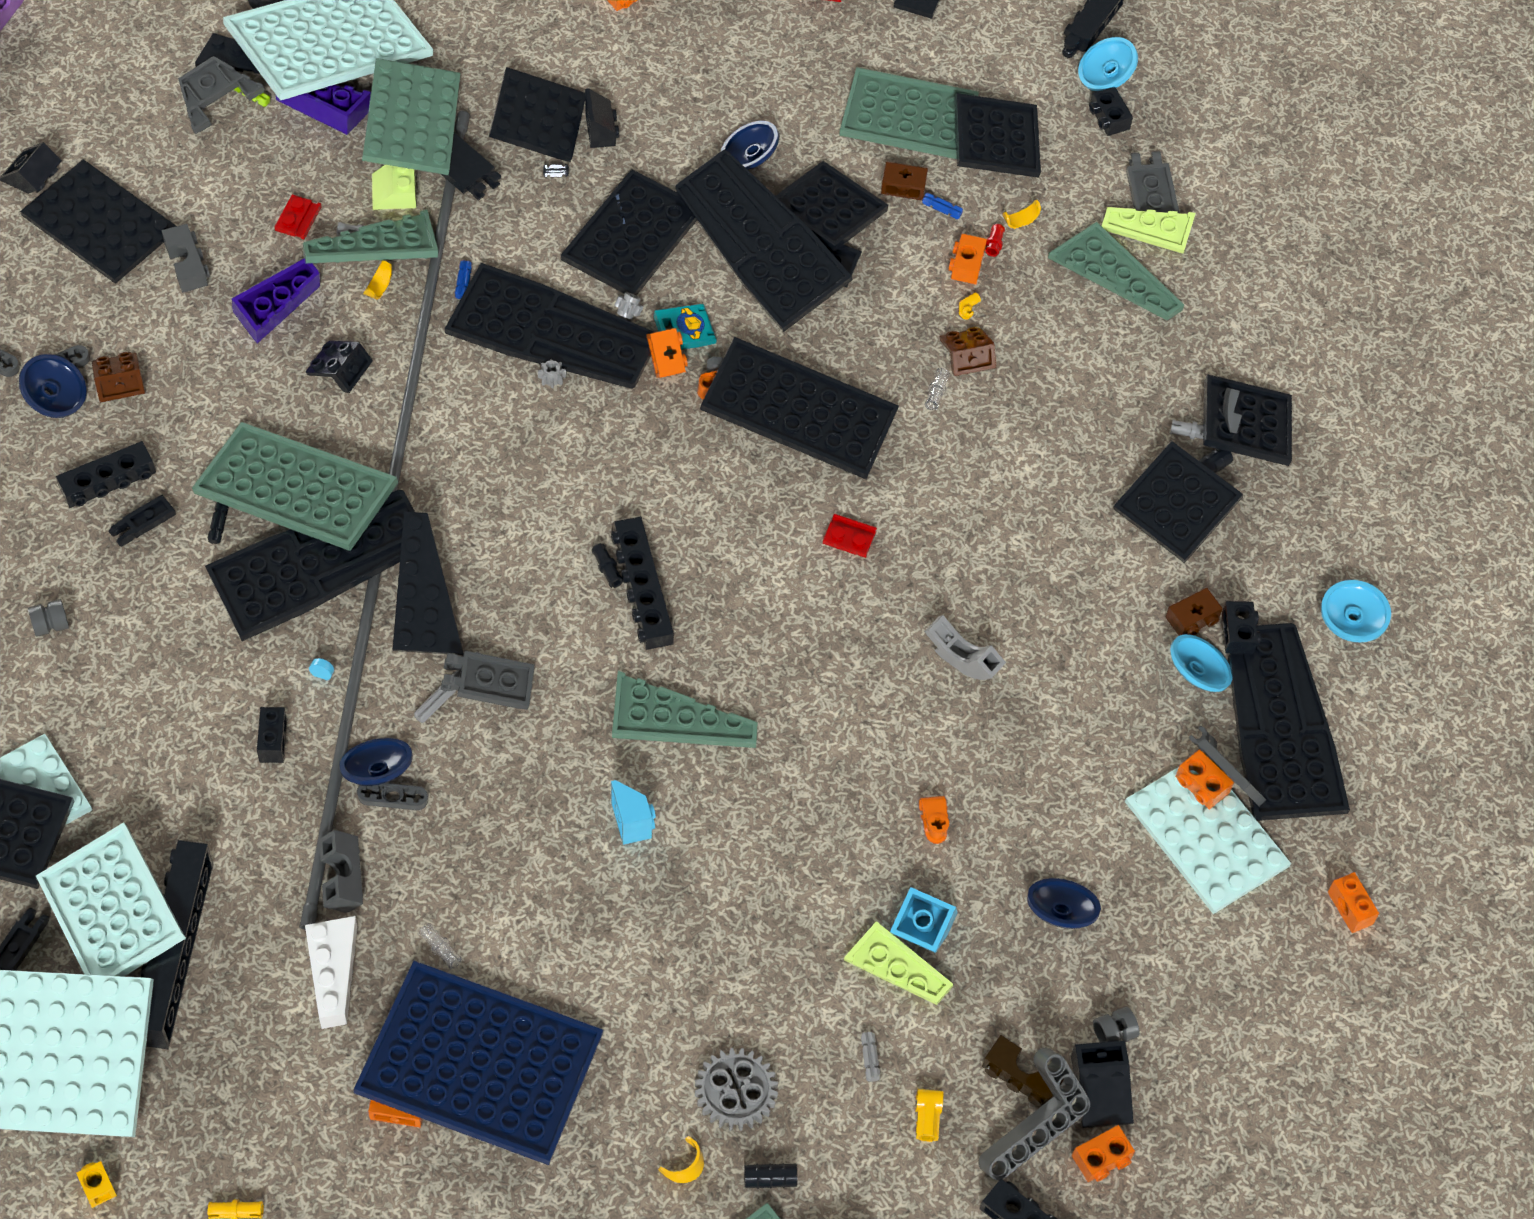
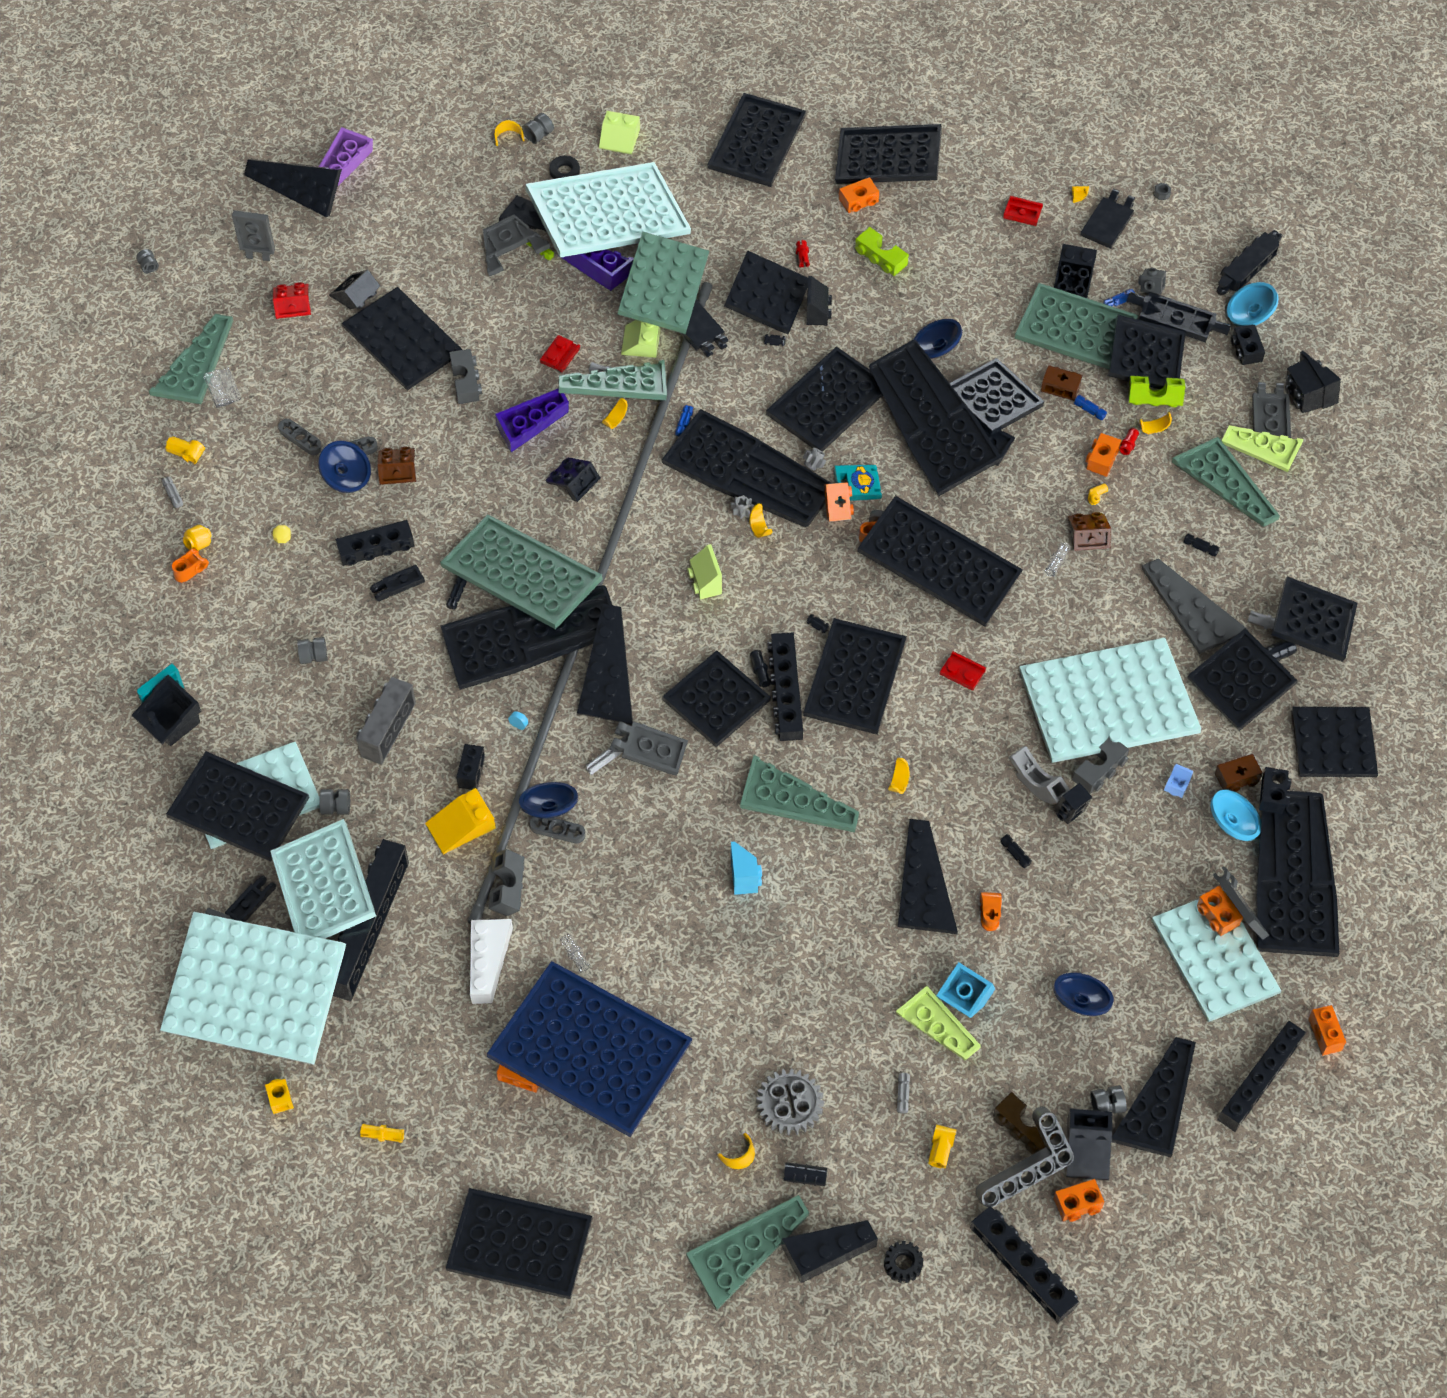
camera: 15 degrees right, 0 degrees up
(107, 802) = (335, 801): none -> dark grey wheel
(156, 692) = (386, 720): none -> flat silver brick
(271, 804) = (461, 821): none -> yellow slope
(522, 459) = (705, 573): none -> yellowish green slope
(560, 609) = (716, 698): none -> black plate
(571, 62) = (802, 252): none -> red pin
(573, 390) = (758, 523): none -> yellow helmet
(667, 502) = (817, 623): none -> black piece
(677, 61) = (891, 260): none -> lime arch
(723, 559) = (855, 676): none -> black plate
(798, 672) = (900, 776): none -> yellow helmet
(850, 805) = (924, 892): none -> black wing
(896, 47) = (1075, 270): none -> black slope
(951, 742) = (1016, 851): none -> black axle
(954, 74) = (1118, 299): none -> blue axle
(988, 50) = (1152, 281): none -> dark grey brick
(1010, 676) = (1073, 803): none -> black brick
(1024, 640) = (1092, 776): none -> dark grey arch
(1025, 87) = (1178, 316): none -> black plate
(1027, 547) = (1109, 693): none -> light aqua plate
(1033, 179) = (1171, 394): none -> lime arch
(1100, 350) = (1201, 544): none -> black axle
(1112, 434) = (1197, 615): none -> dark grey wing
(1126, 631) = (1178, 781): none -> light blue bracket
(1175, 1028) = (1157, 1110): none -> black wing
(1193, 148) = (1312, 384): none -> black piece
(1231, 418) = (1300, 616): dark grey slope -> none
(1288, 969) = (1261, 1076): none -> black brick
(1293, 559) = (1334, 742): none -> black plate
(1359, 601) = (1377, 781): medium azure dish -> none

